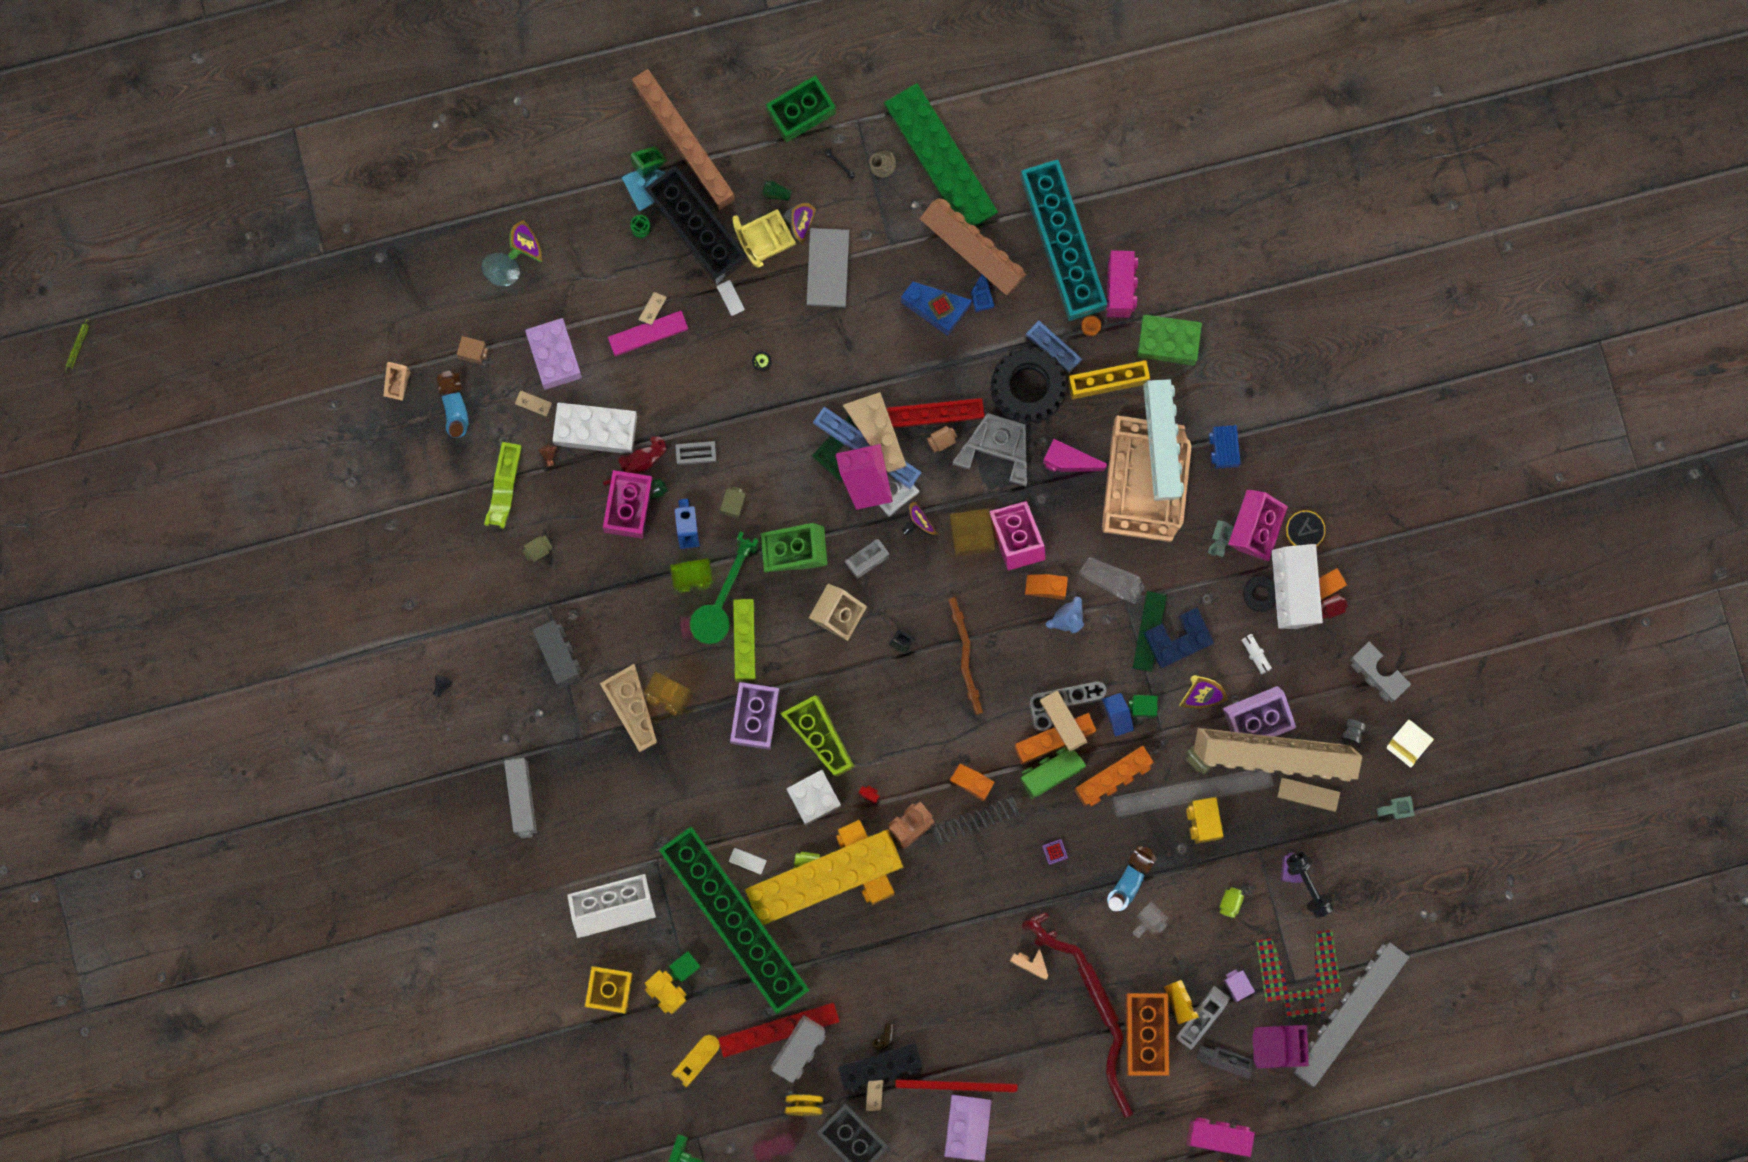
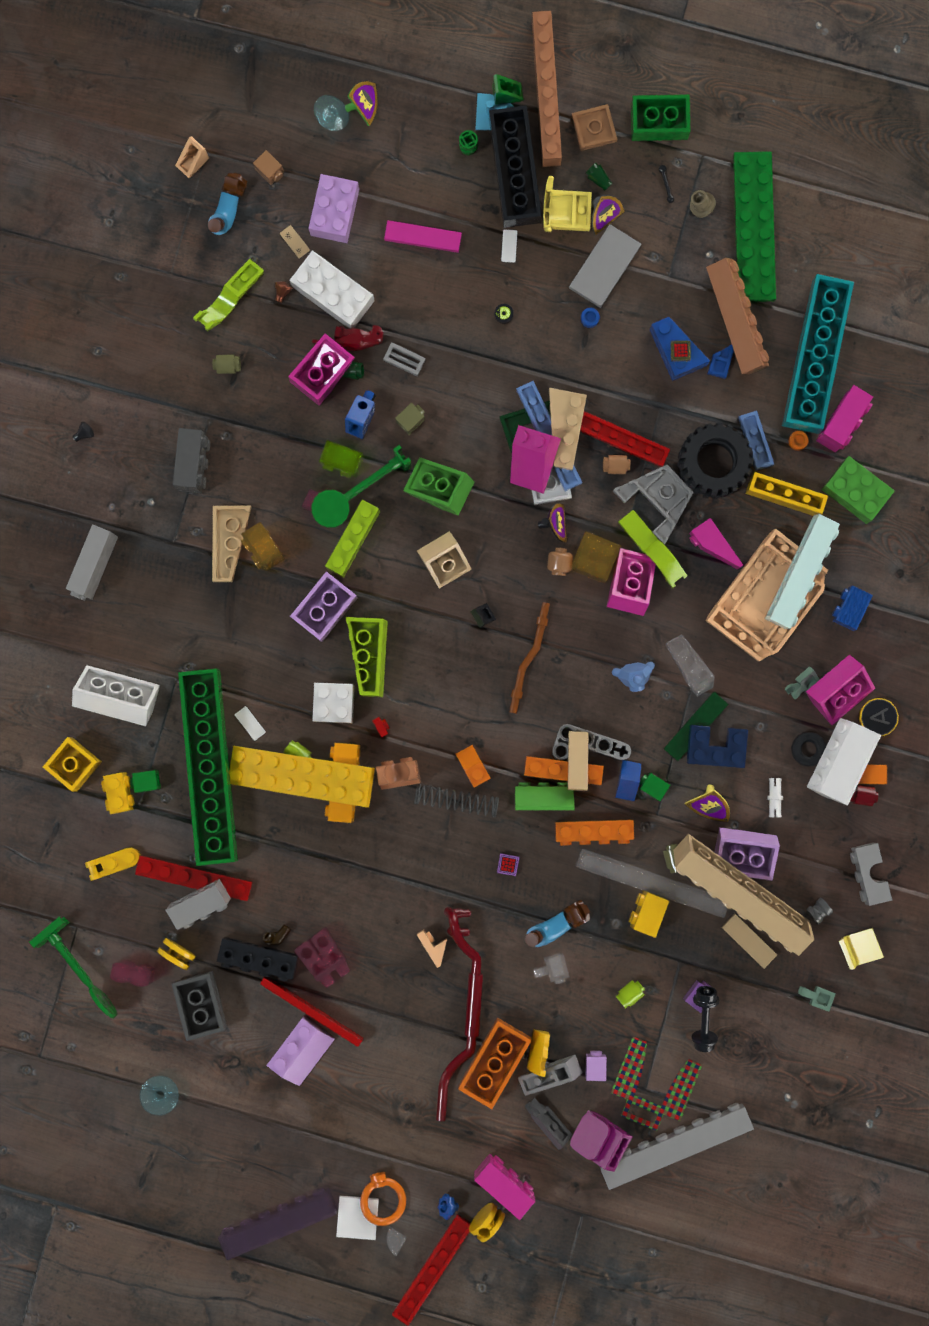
camera: 40 degrees right, 5 degrees up
(652, 308) = (439, 217): tan sticker -> none
(745, 149) = (594, 127): none -> medium nougat tile
(841, 321) = (590, 317): none -> blue tile
(867, 558) = (495, 529): light grey hinge -> none
(874, 1095) = (239, 979): tan sticker -> none
(942, 554) = (560, 562): none -> medium nougat head
(944, 1031) = (326, 961): none -> clear pink hips
(1018, 494) = (652, 547): none -> lime piece
(1046, 586) = (631, 638): orange slope -> none

